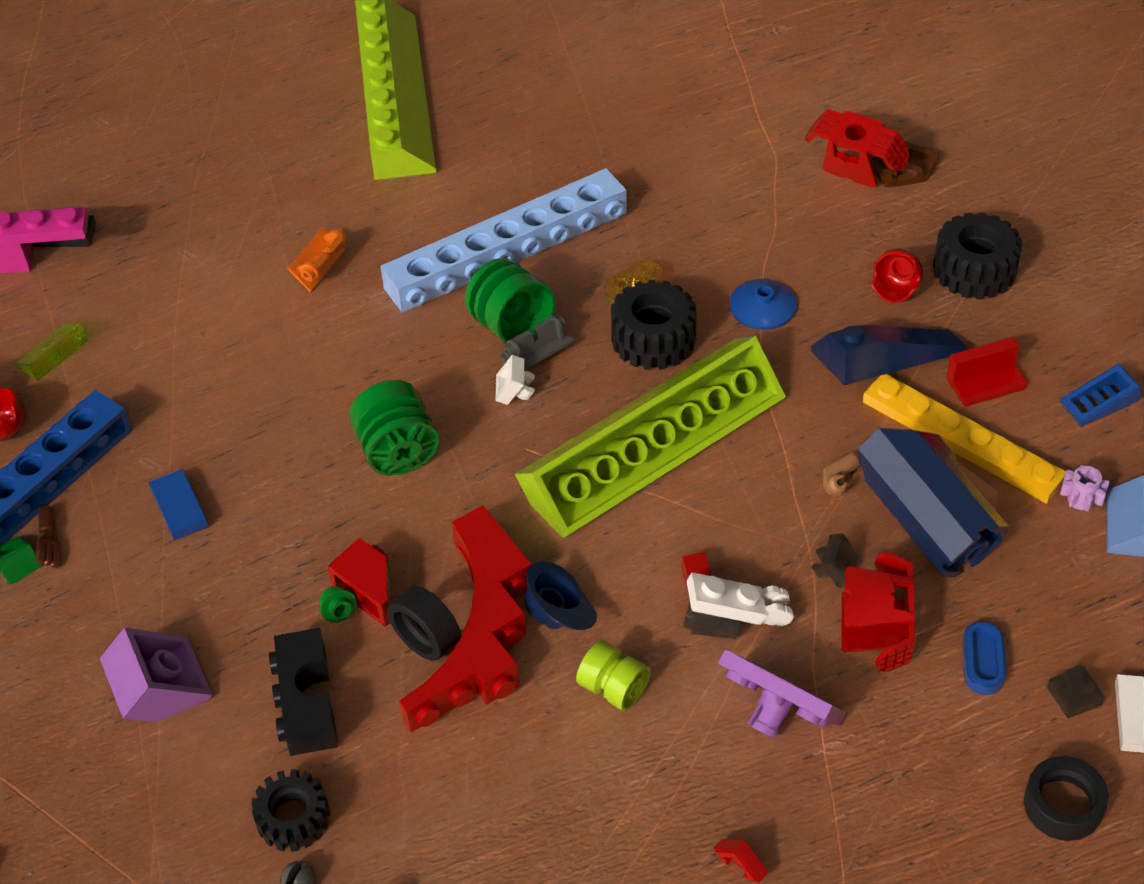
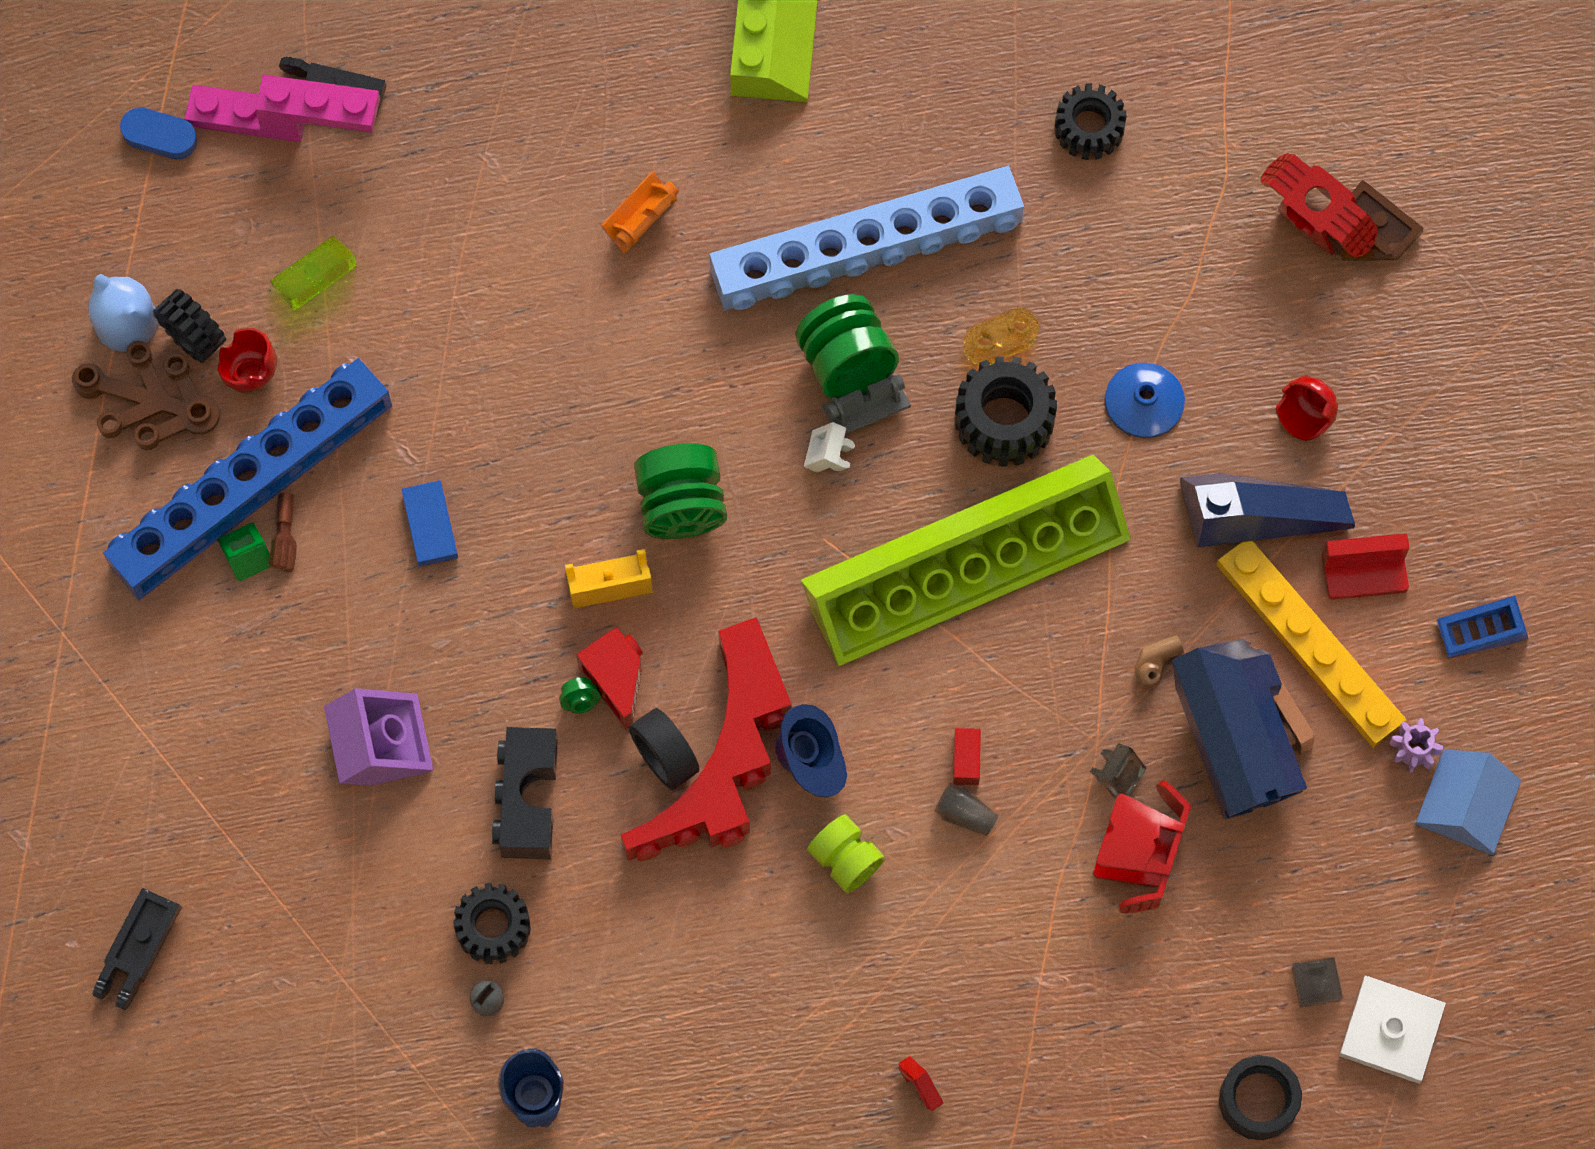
camera: 10 degrees right, 20 degrees up
(346, 513) = (609, 580): none -> yellow hinge
(660, 150) = (1093, 101): none -> black tyre
(739, 600) = (997, 797): white hinge -> none
(777, 697) = (1008, 919): medium lavender plate -> none
(977, 255) = (1423, 374): black tyre -> none
(984, 658) = (1237, 920): blue tile -> none

